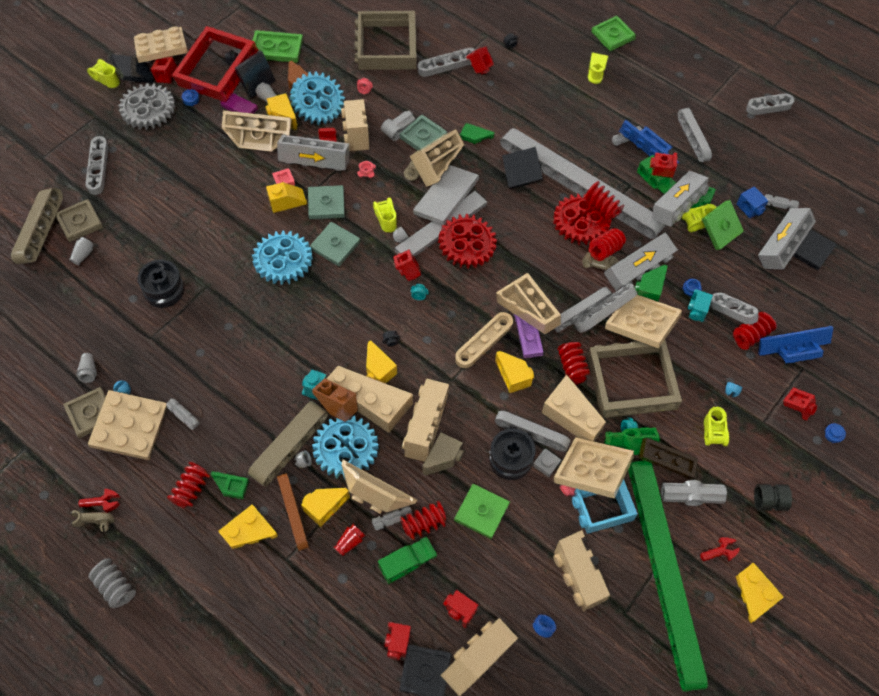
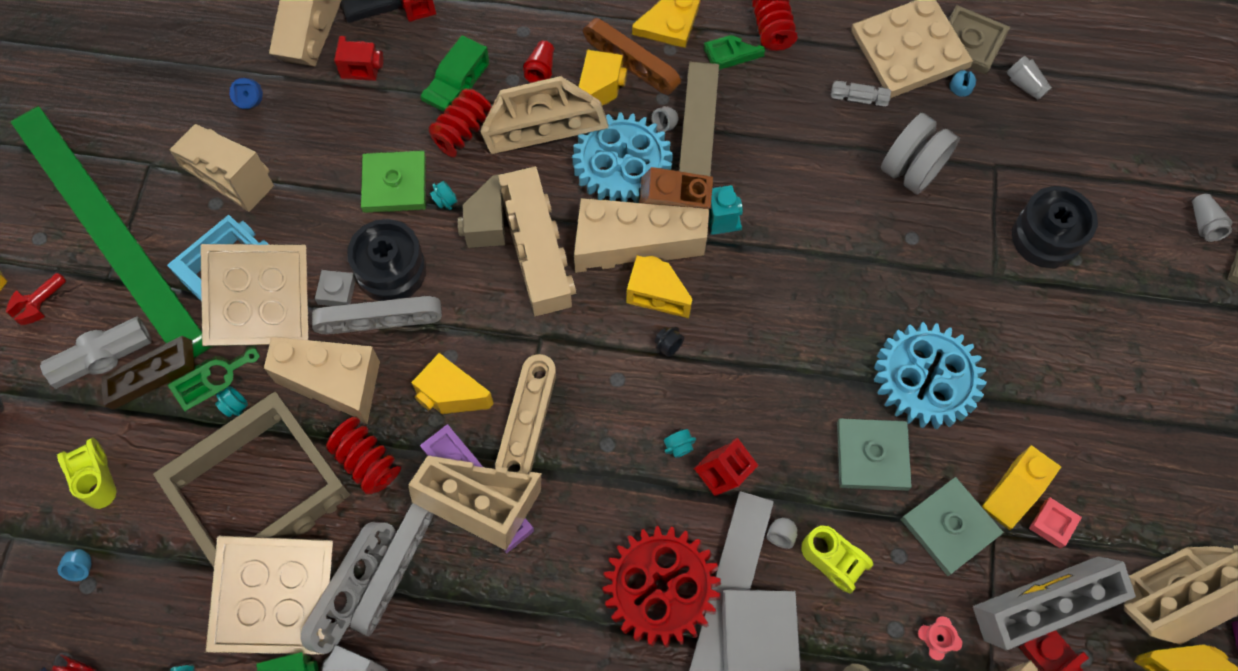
camera: 150 degrees right, 5 degrees up
(191, 349) = (919, 153): none -> light grey wheel
(458, 483) = (443, 195): none -> teal plate

